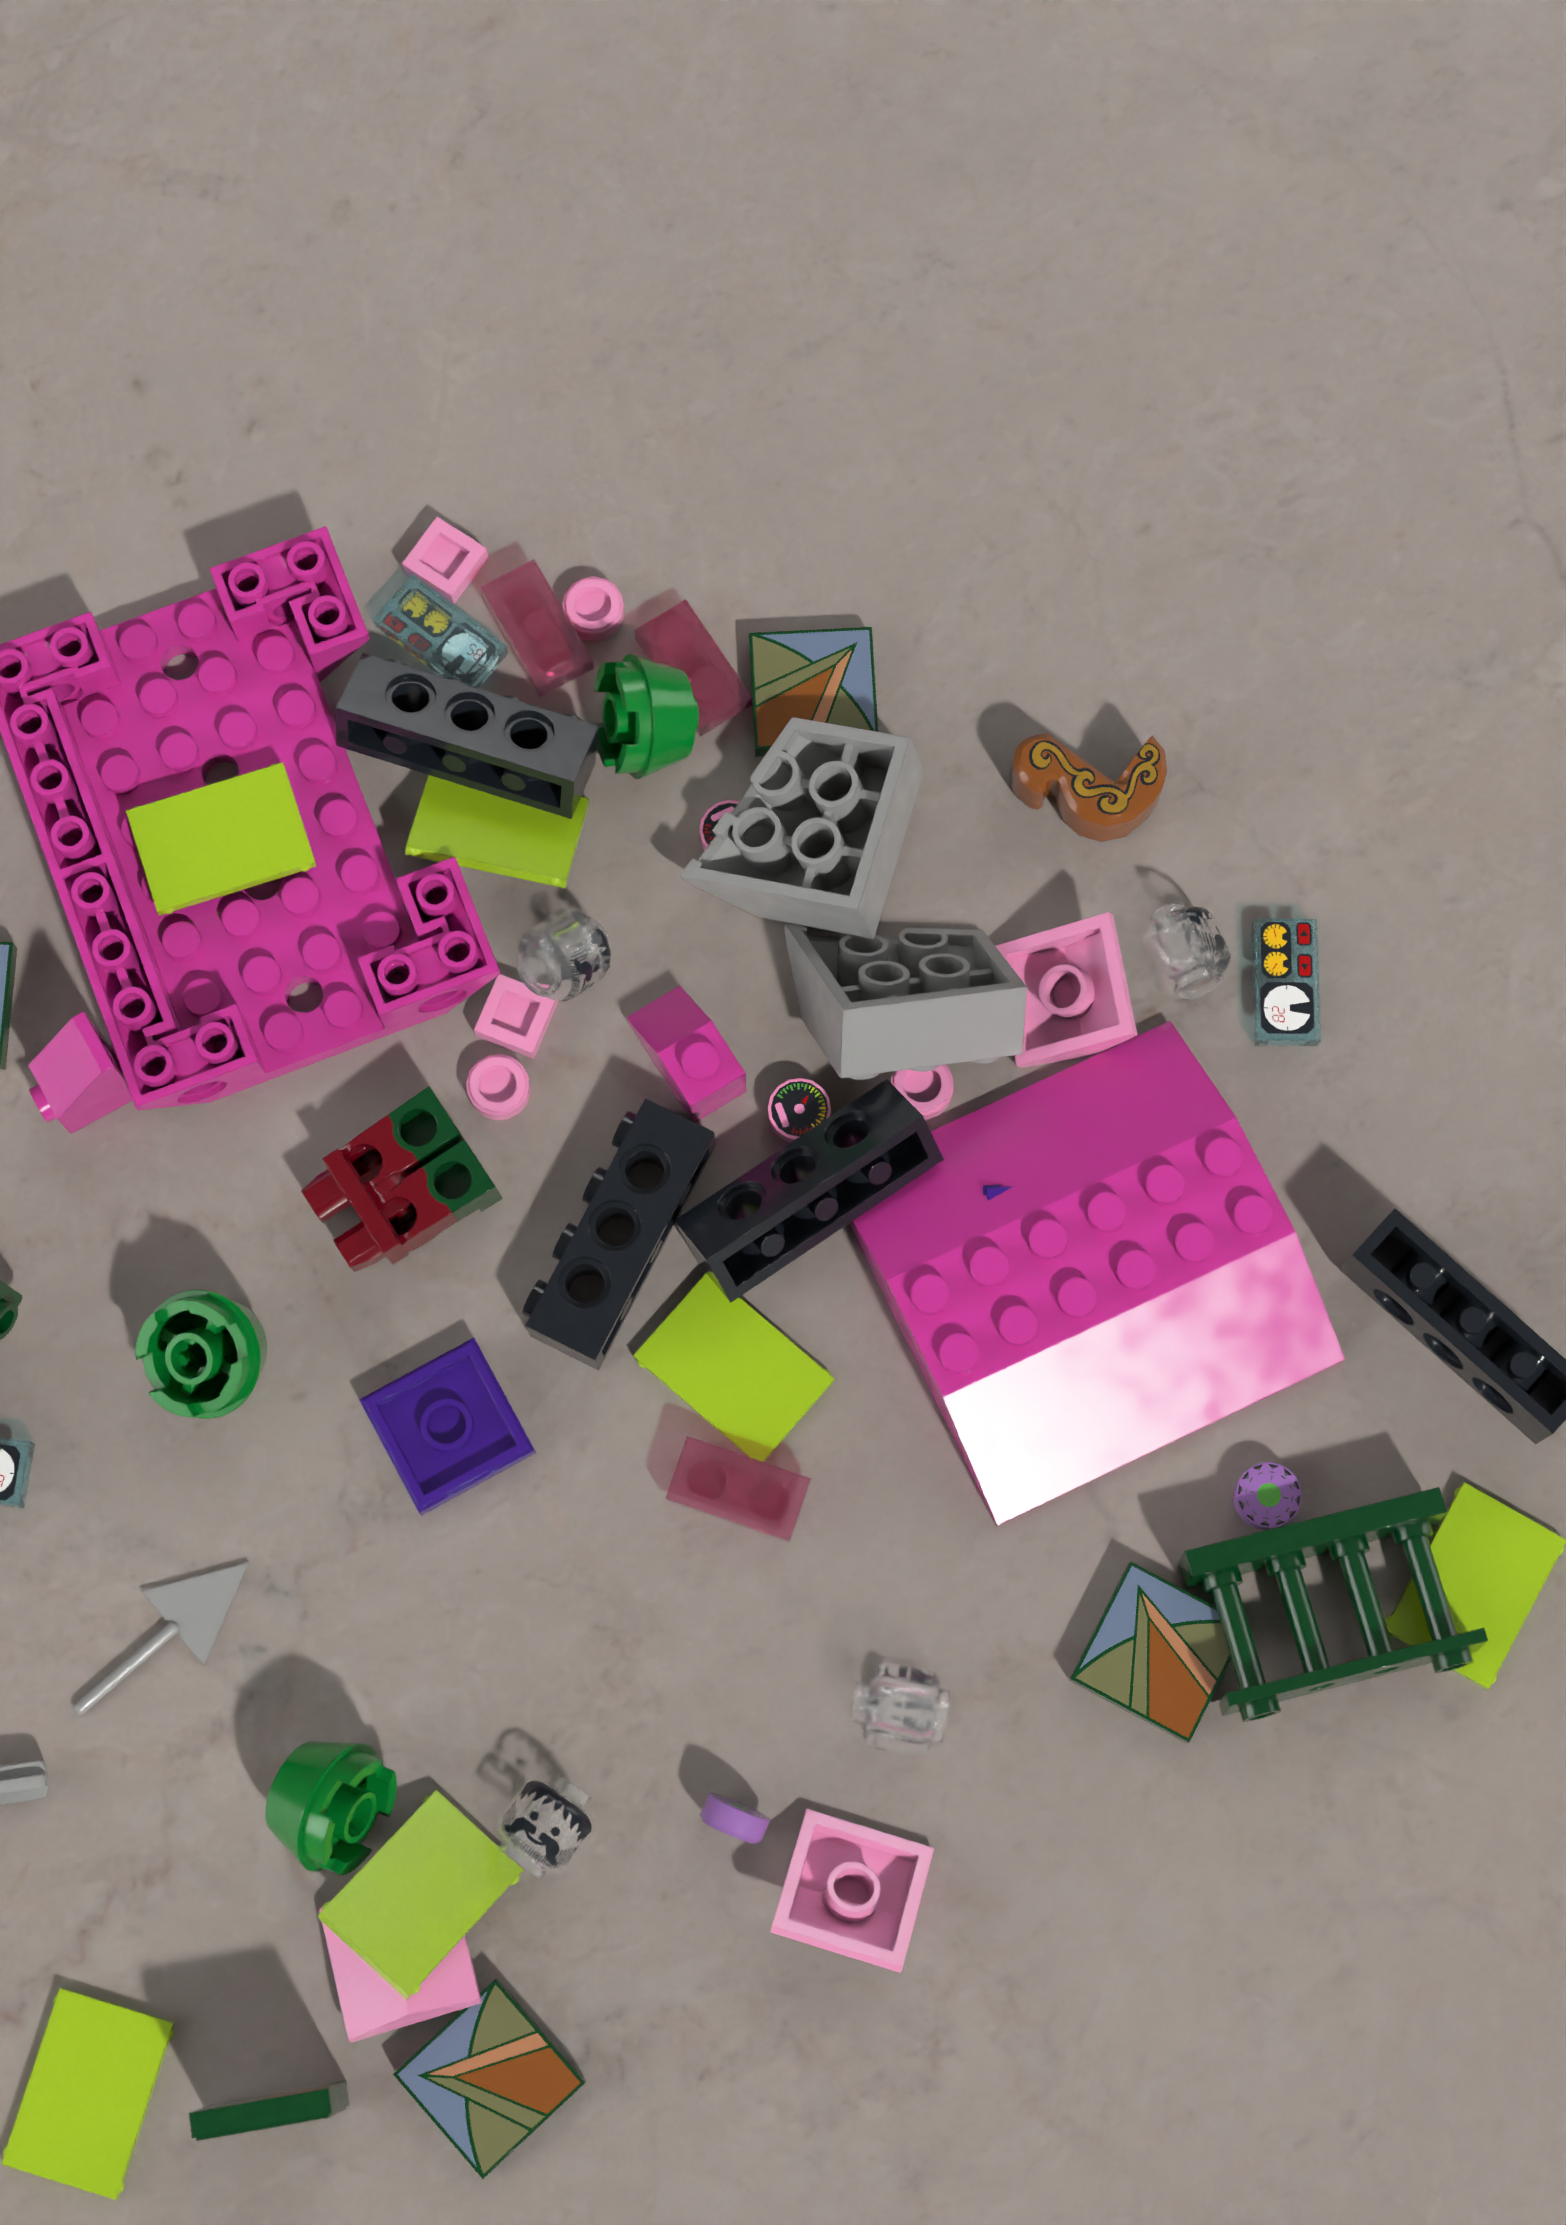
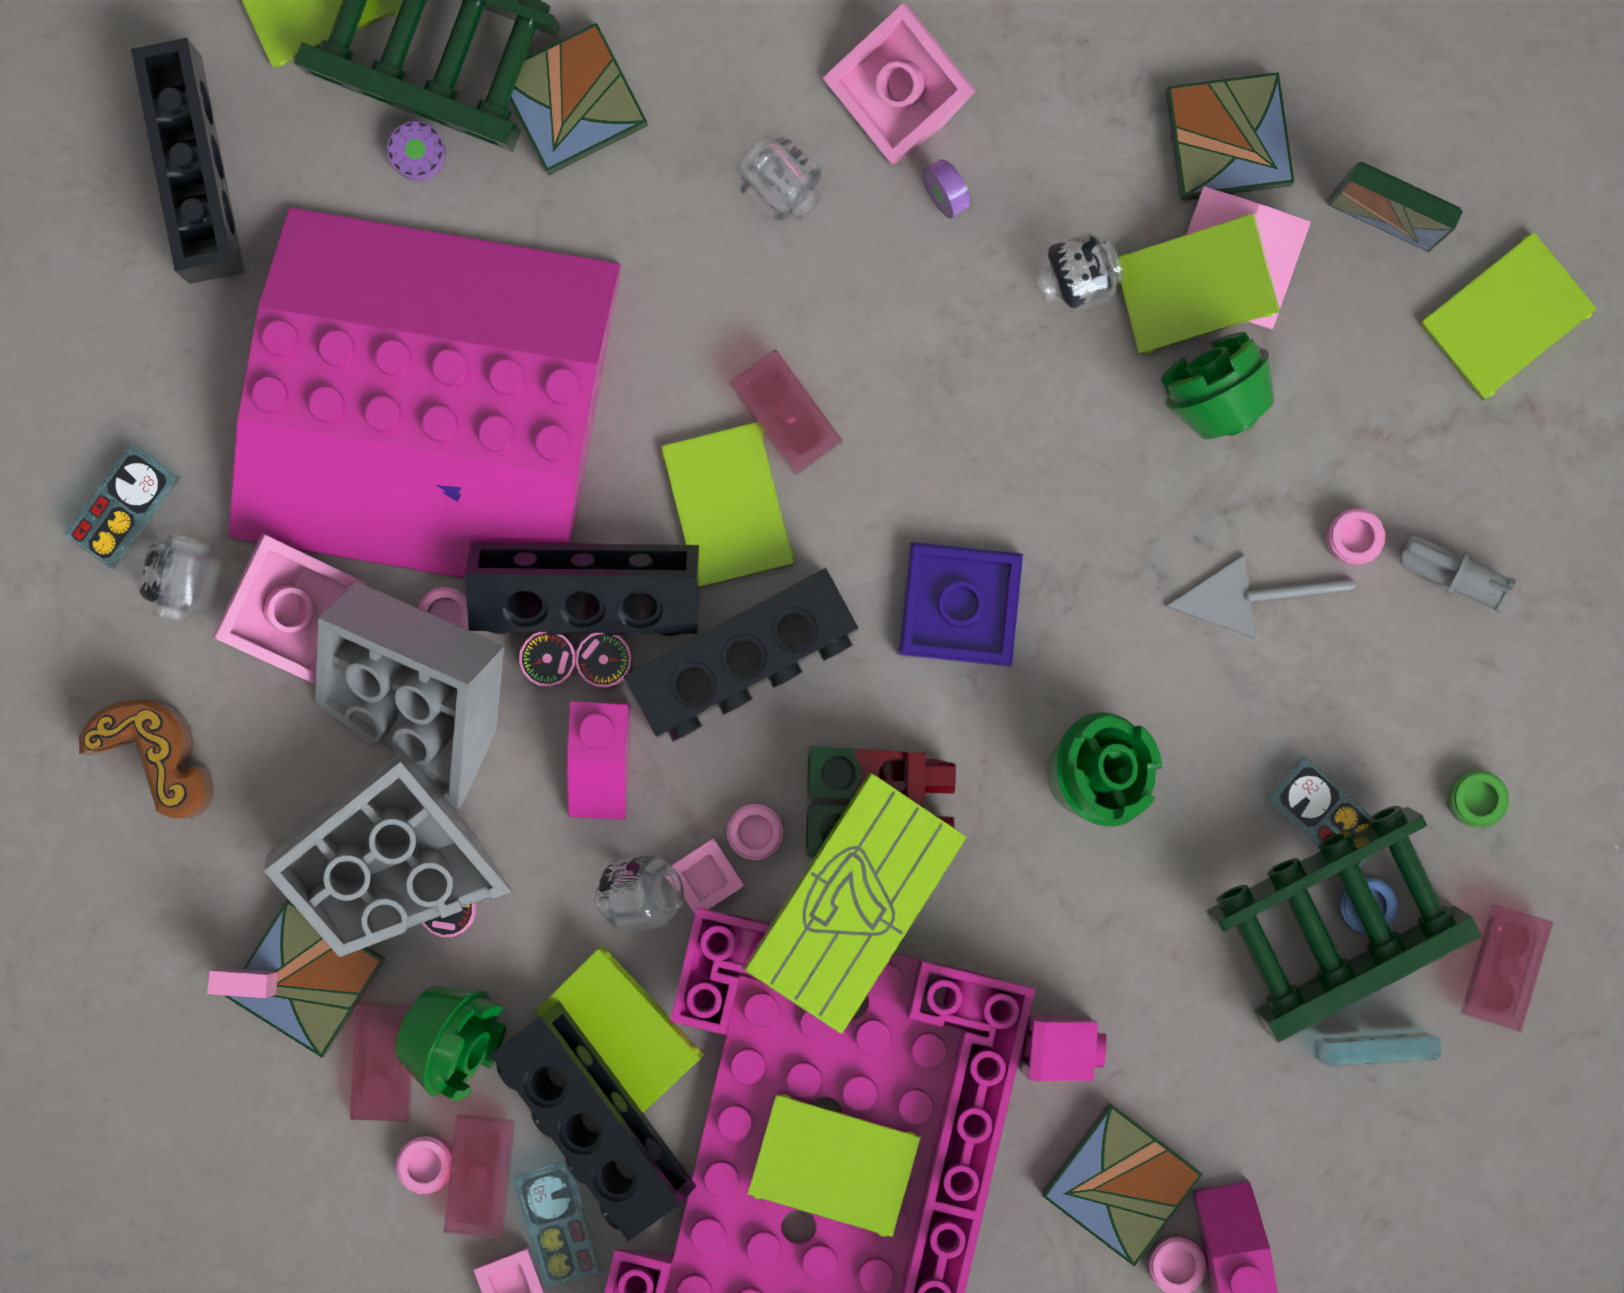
camera: 150 degrees left, 10 degrees up
(104, 1757) = (1355, 537): none -> bright pink tile
(354, 1068) = (854, 903): none -> lime tile
(745, 1142) = (603, 660): none -> black tile
(861, 641) = (242, 982): none -> bright pink tile

